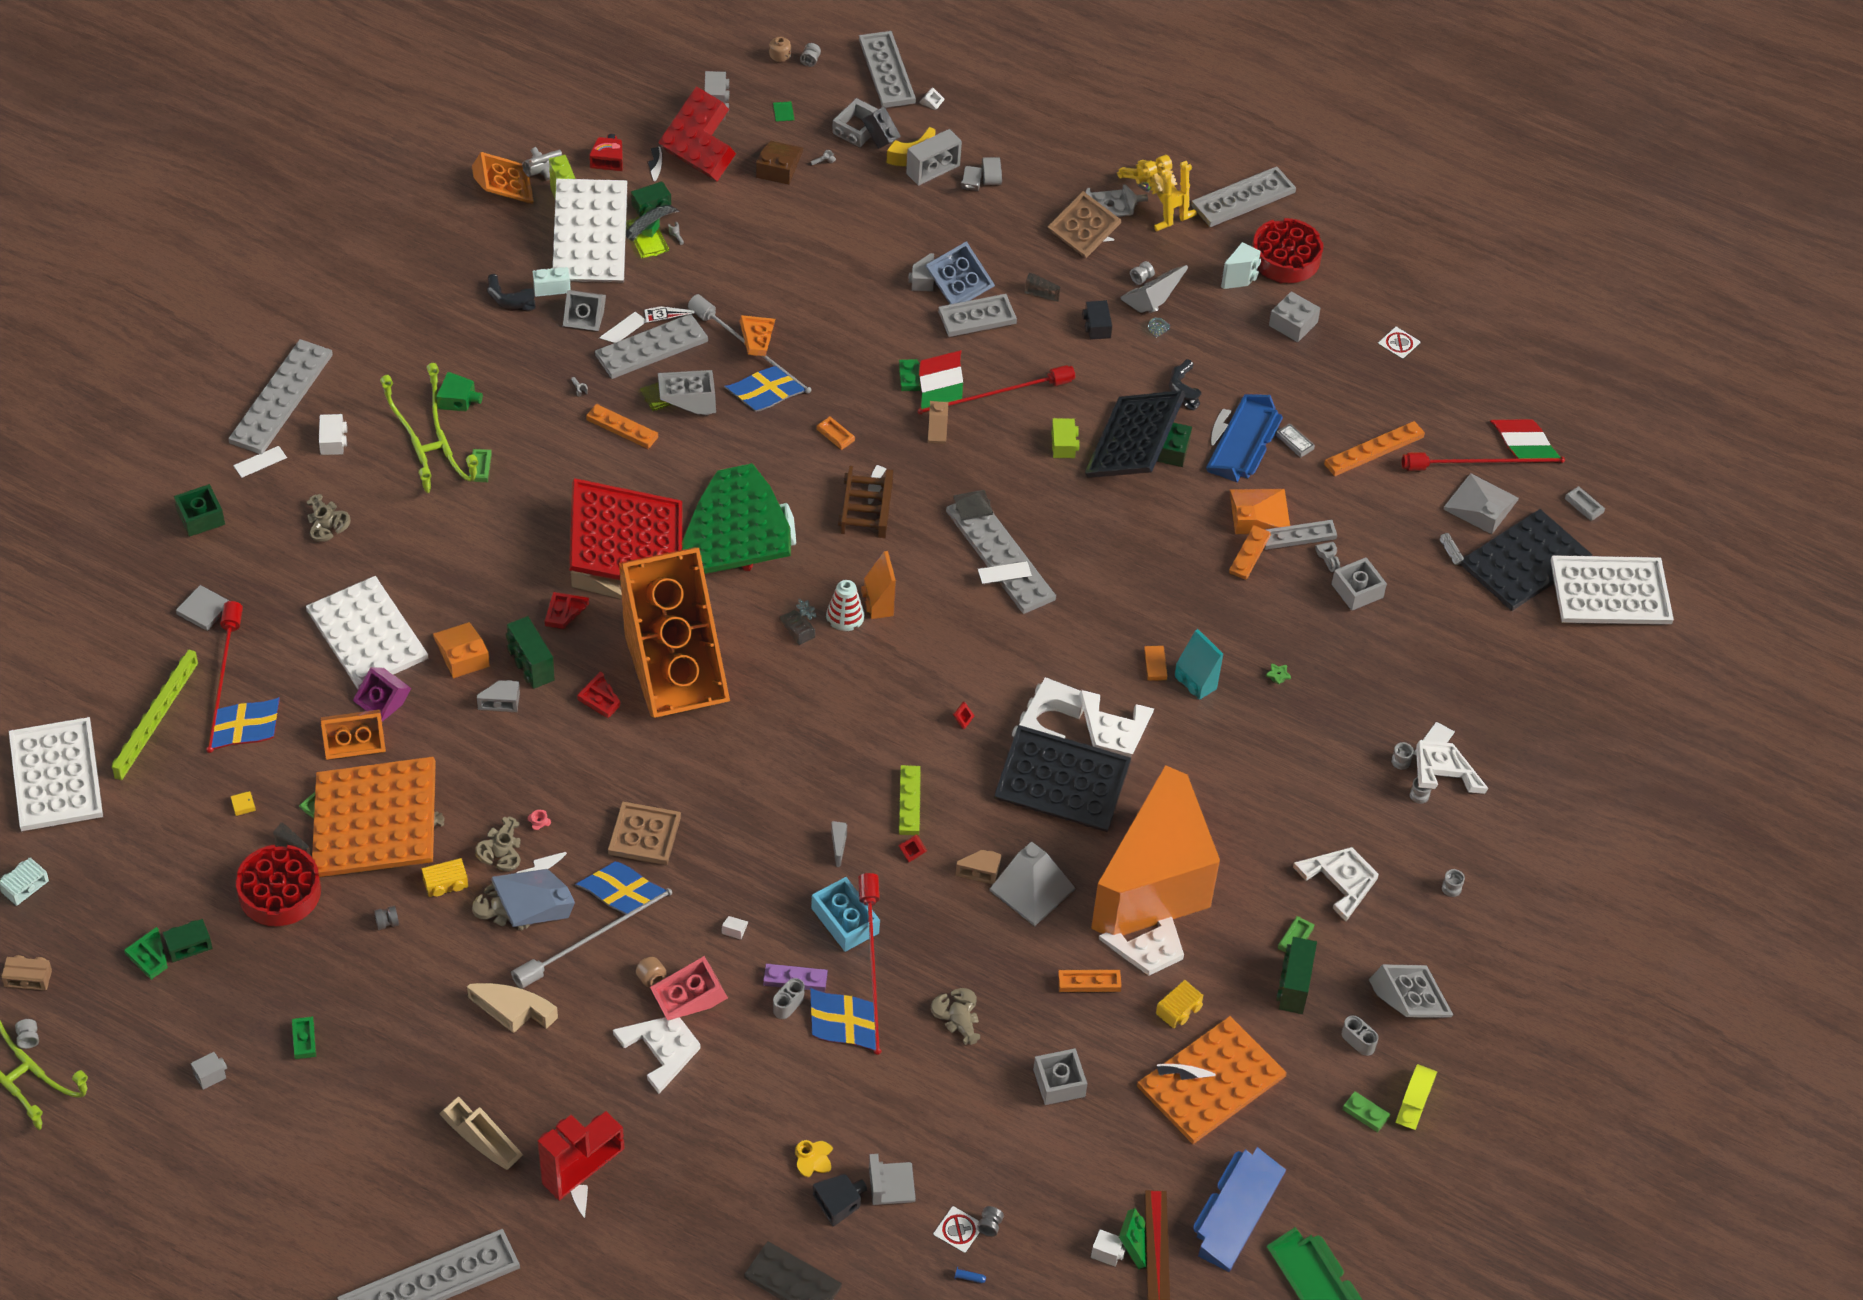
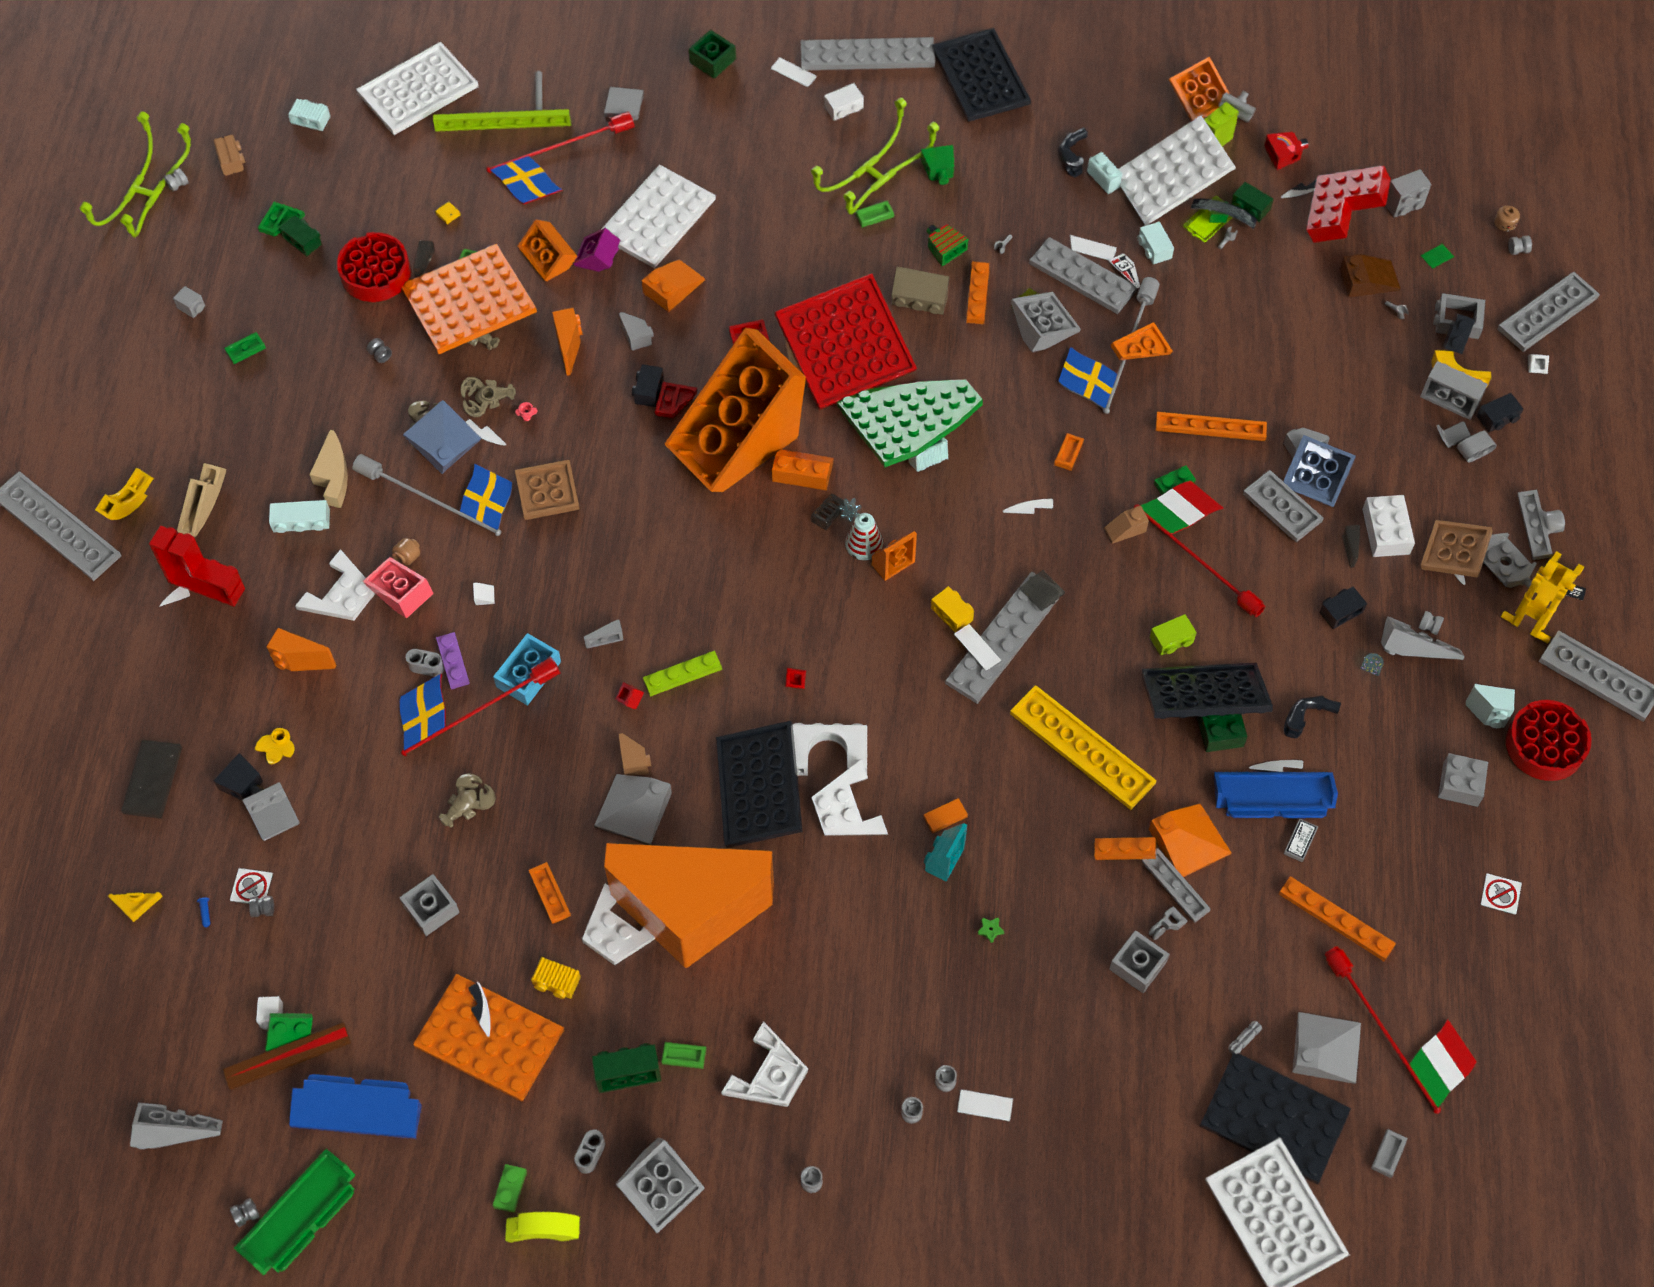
camera: 70 degrees right, 10 degrees up
(136, 673) = (538, 83): none -> light grey bar
(326, 517) = (753, 136): dark tan animal -> none
(371, 322) = (981, 74): none -> black plate
(436, 1203) = (127, 499): none -> yellow arch
(445, 877) = (435, 371): yellow brick -> none
(481, 750) = (568, 334): none -> orange slope
(530, 652) = (685, 328): dark green brick -> none
(553, 425) = (946, 243): none -> green torso
(553, 1052) = (299, 516): none -> light aqua brick
(573, 709) = (648, 385): none -> black brick
(584, 310) = (1089, 208): light grey slope -> none
(602, 459) = (920, 290): none -> dark tan slope
(652, 280) = (1156, 243): none -> light aqua brick
(721, 1098) = (298, 653): none -> orange slope
(742, 625) = (802, 469): none -> orange slope
(869, 327) = (1211, 426): none -> orange plate
(881, 510) = (1003, 522): reddish brown fence -> none
(955, 576) = (952, 609): none -> yellow brick
(970, 140) = (1500, 412): none -> black brick
(1037, 256) = (1388, 526): none -> white brick
(1087, 167) = (1539, 524): none -> light grey plate
(1138, 542) = (1083, 747): none -> yellow plate
(1445, 760) = (957, 1118): white wing -> none

